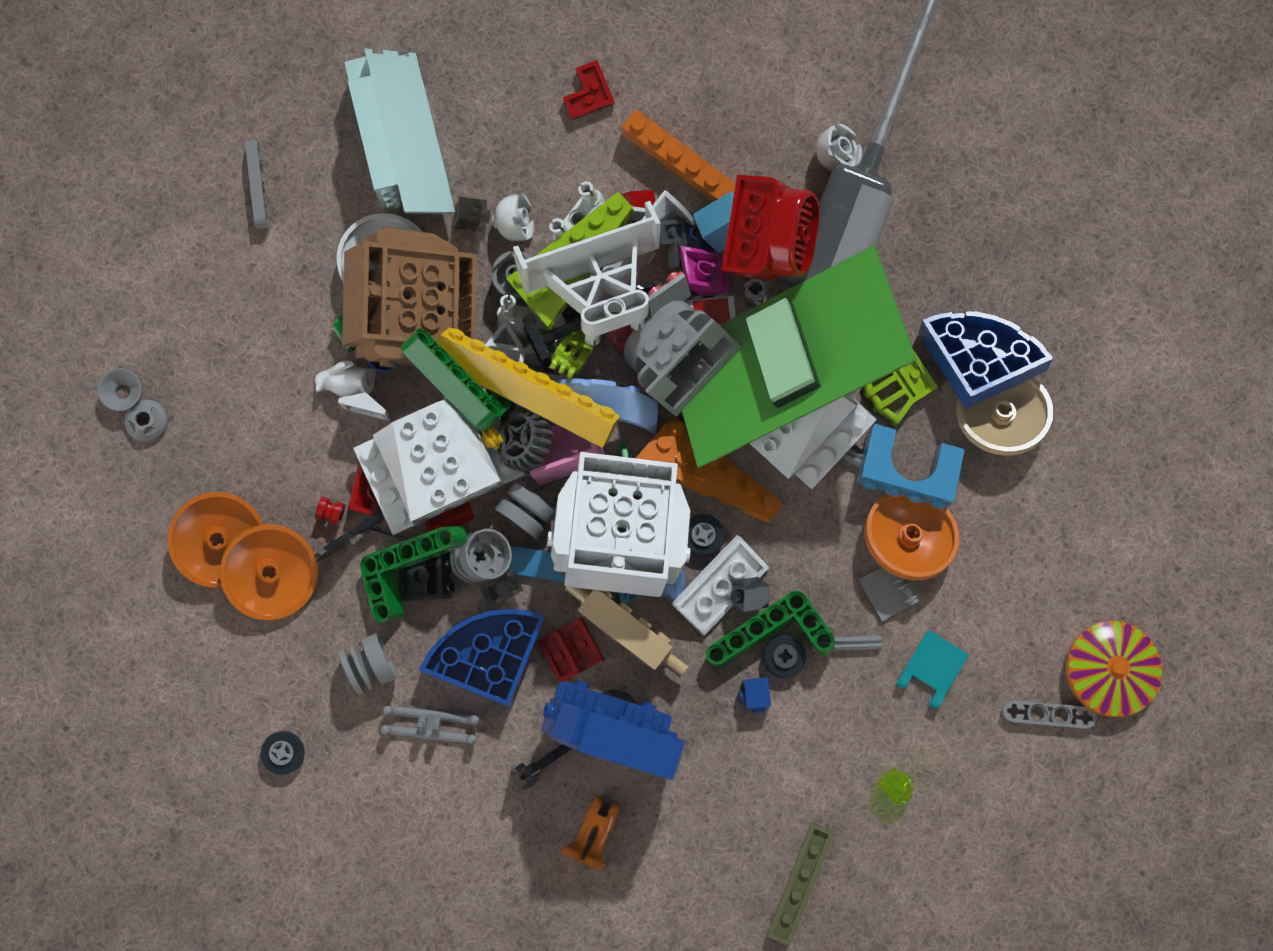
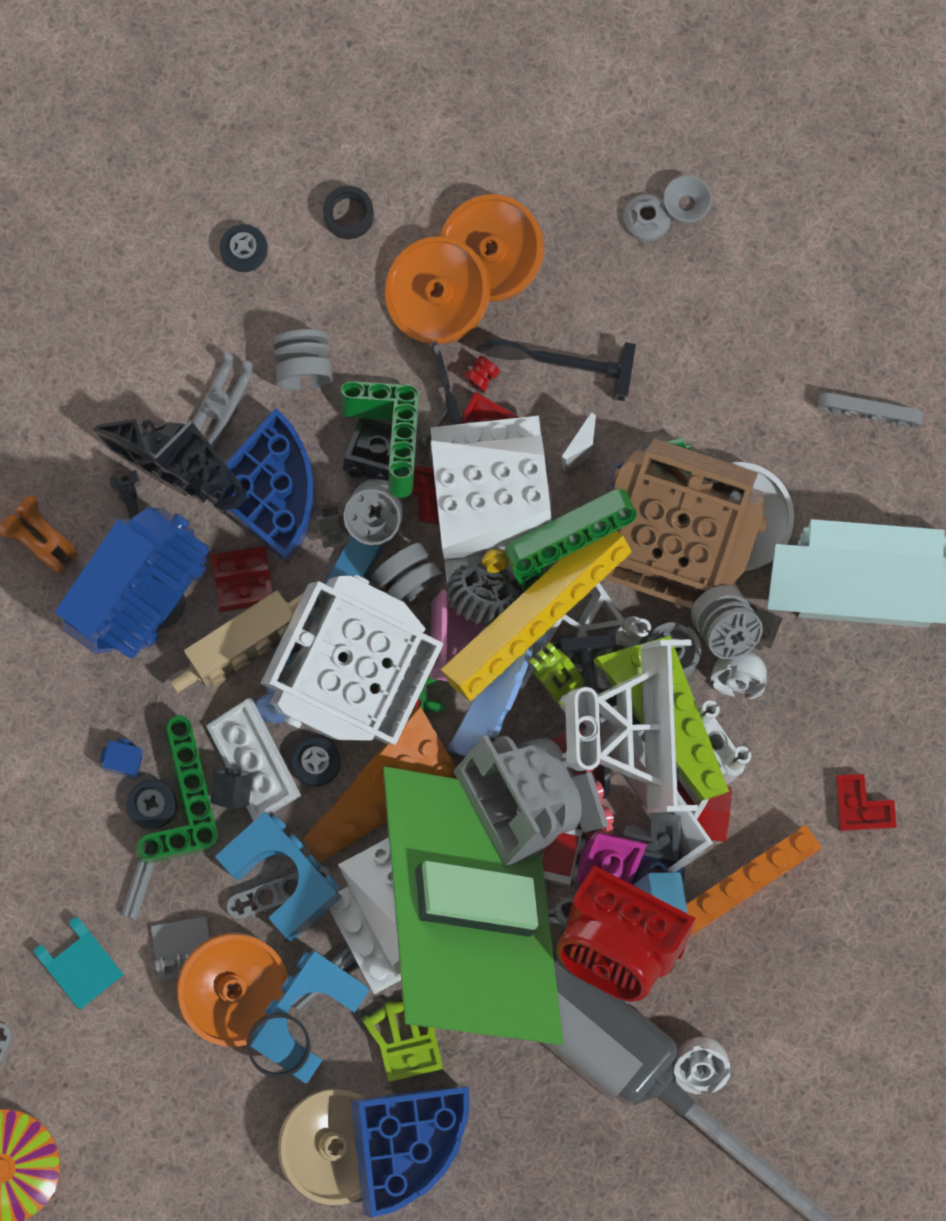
camera: 115 degrees right, 5 degrees down
(209, 660) = (343, 193): none -> black tyre
(289, 396) = (620, 371): none -> black piece
(346, 379) = (618, 435): white animal -> none
(479, 236) = (726, 622): none -> light grey wheel
(491, 735) = (175, 457): none -> black connector
(810, 495) = (314, 891): none -> dark azure arch
(821, 525) = (275, 886): none -> light grey beam
(957, 459) = (299, 1065): none -> black tyre

